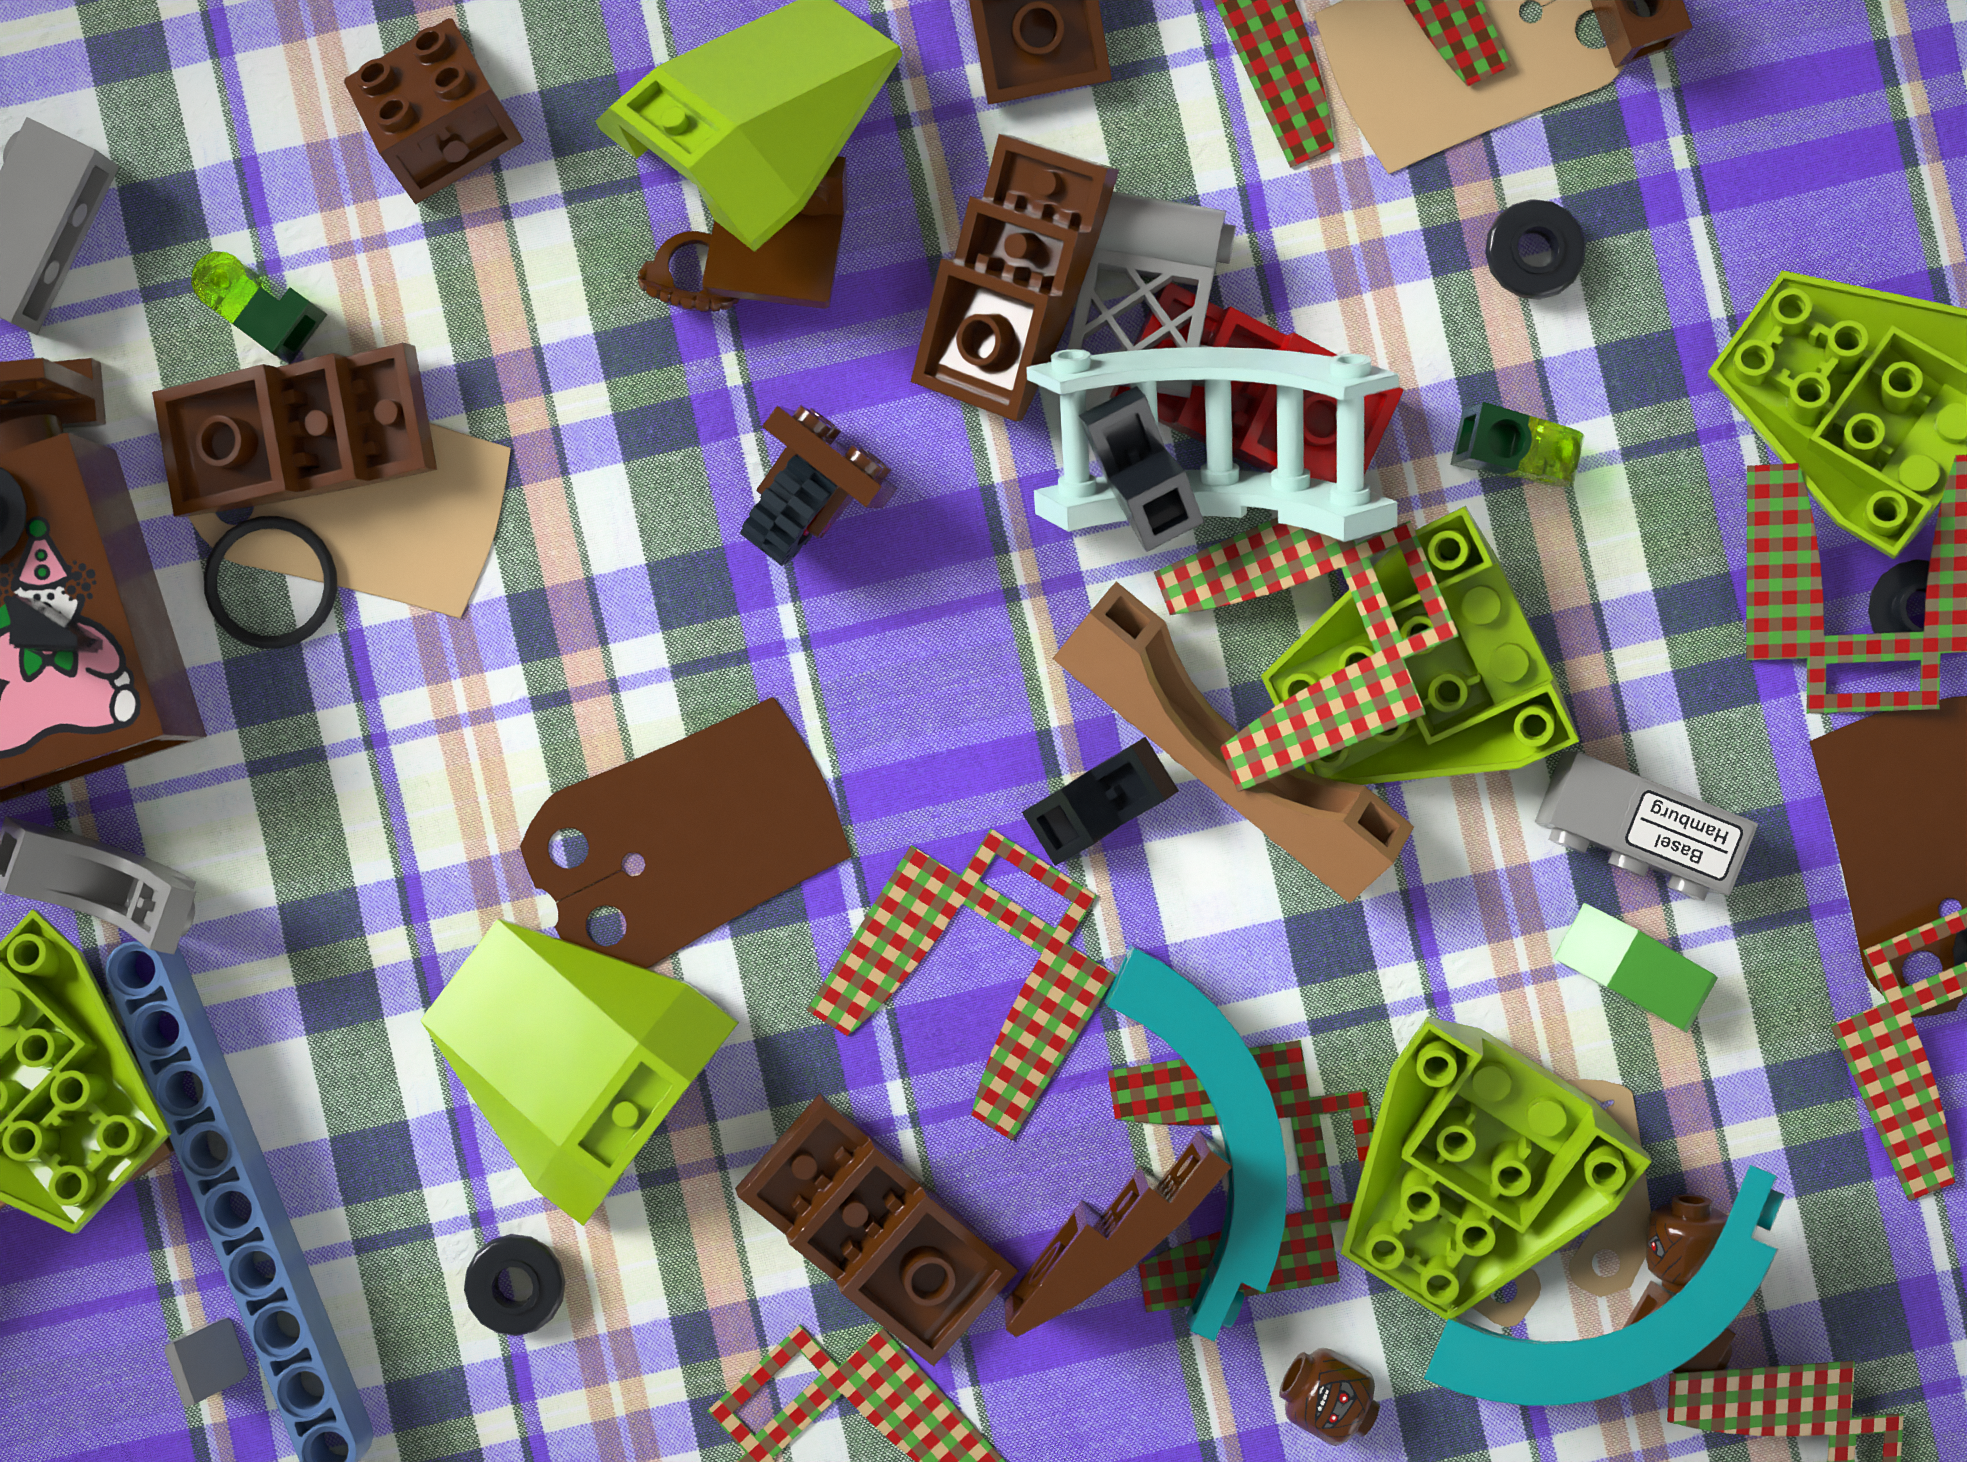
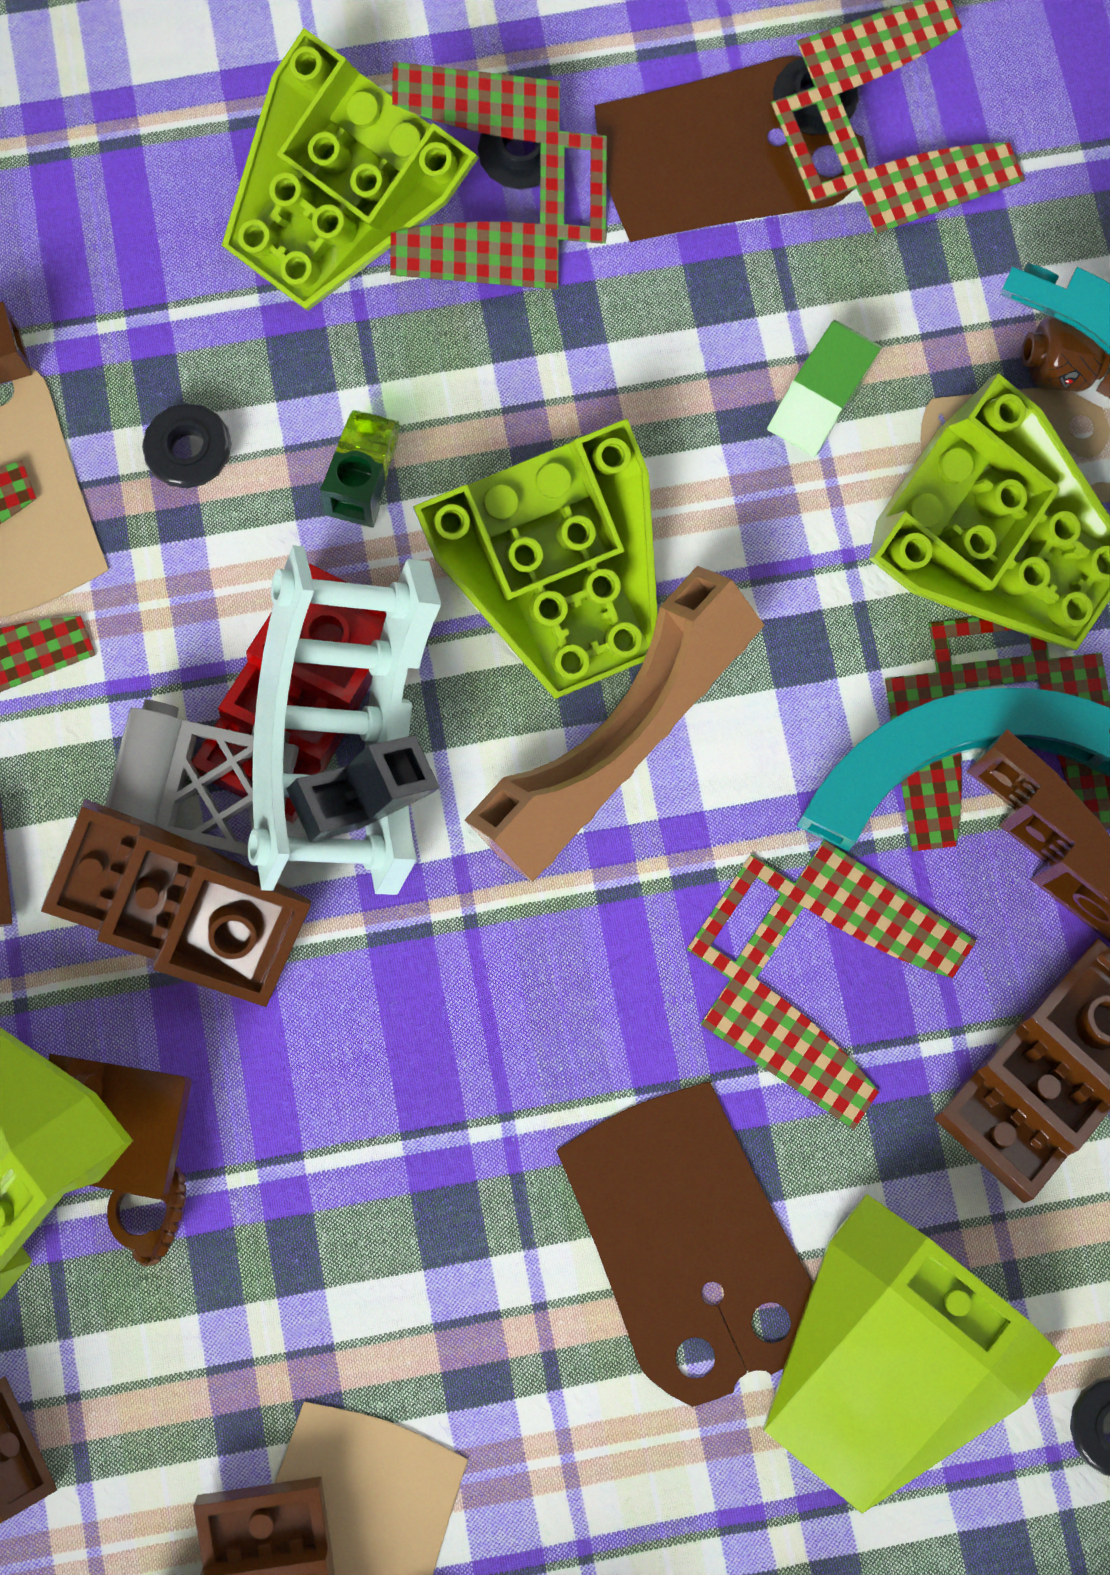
camera: 90 degrees left, 10 degrees down
(810, 483) = (358, 1102): plate -> none
(1100, 801) = (665, 845): black slope -> none
(1348, 703) = (588, 619): piece -> none
(1645, 826) = (700, 375): light grey brick -> none

